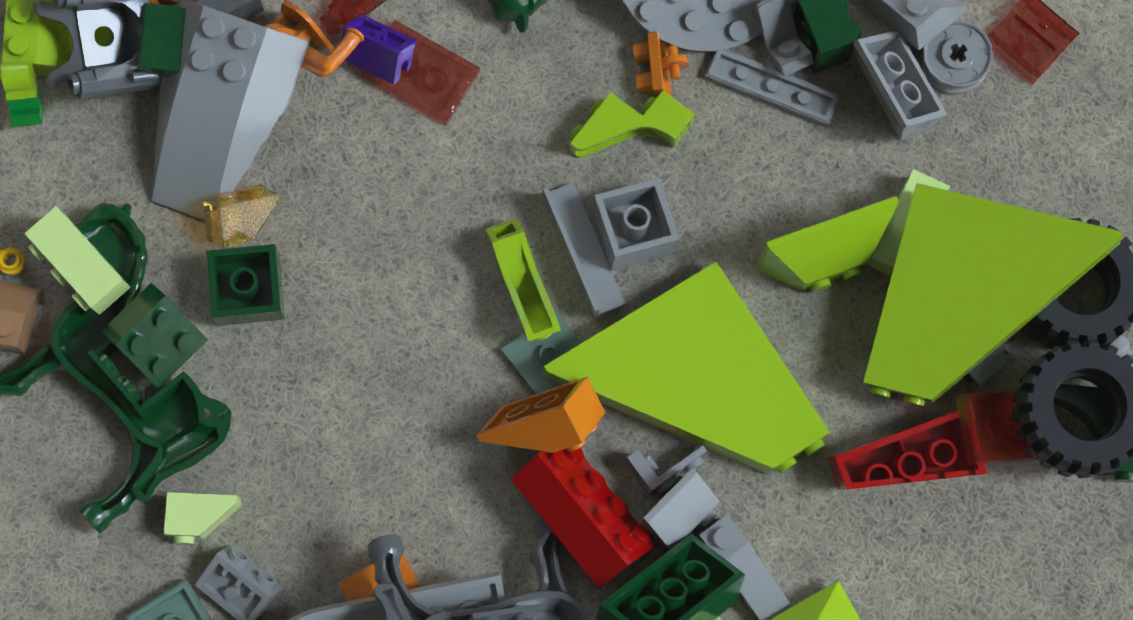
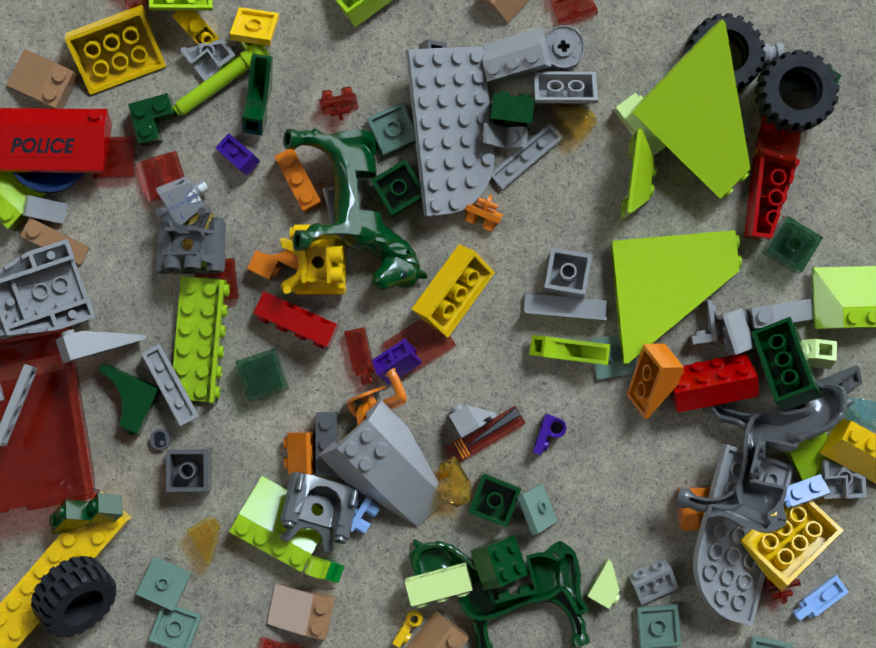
camera: 55 degrees left, 10 degrees up
(117, 108) = (367, 506): none -> light blue hips
(161, 39) = (339, 479): dark green slope -> none
(262, 353) = (537, 509): none -> sand green plate
(336, 230) = (486, 434): none -> clear red tile
(346, 191) = (469, 418): none -> light grey slope
(386, 309) = (541, 443): none -> dark purple plate
(522, 77) = (453, 290): none -> yellow slope
(616, 121) = (504, 252): lime arch -> none
(854, 530) = (792, 245): none -> clear green brick
(863, 127) = (575, 120): none -> clear yellow slope

